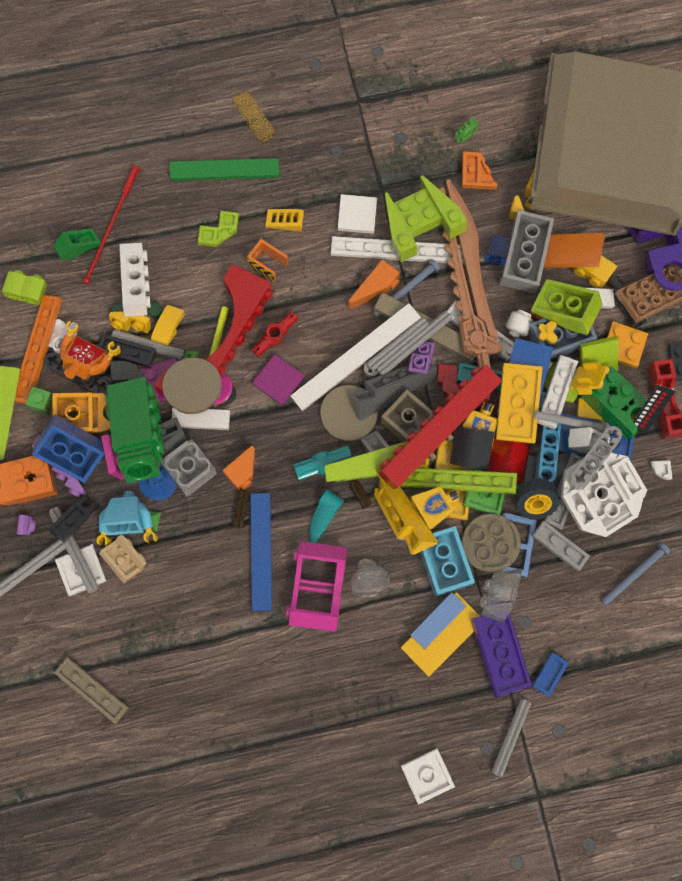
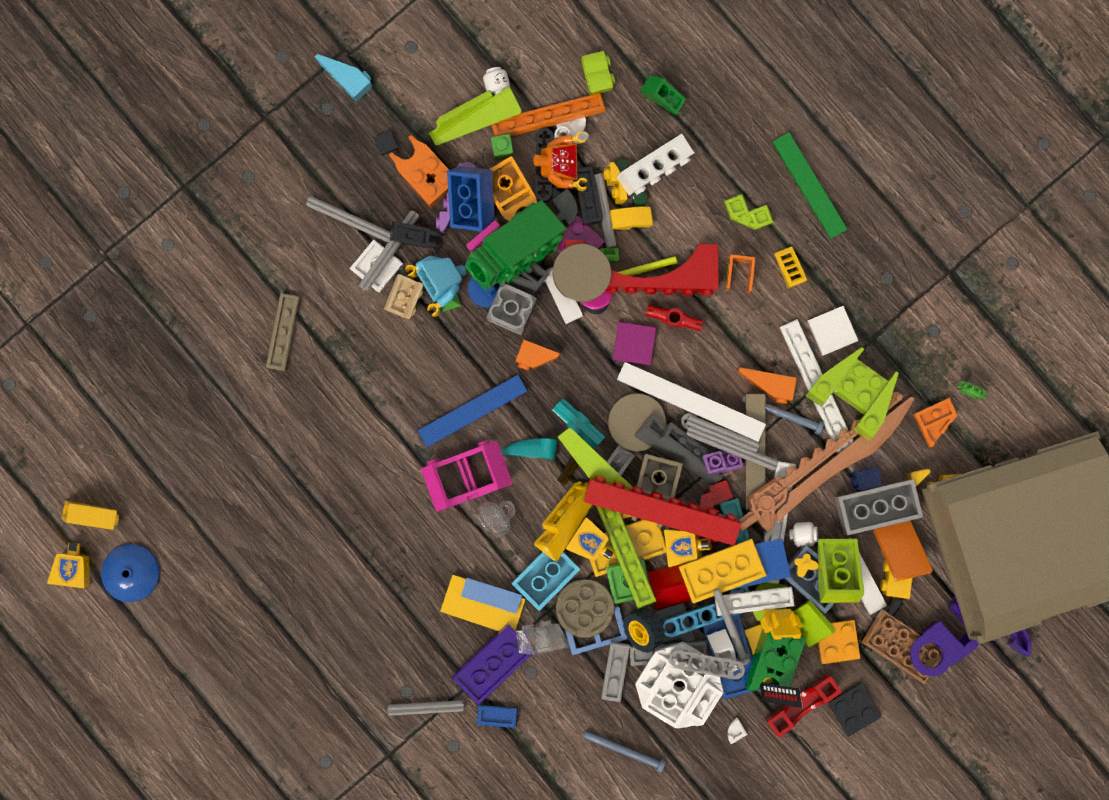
camera: 70 degrees right, 10 degrees up
(25, 525) = (389, 198): medium lavender plate -> none
(125, 191) = (738, 108): red piece -> none
(240, 510) = (500, 373): dark brown axle -> none
(254, 116) = (878, 183): clear yellow tile -> none
(427, 776) = (357, 651): white tile -> none
(472, 448) = (660, 549): black slope -> none

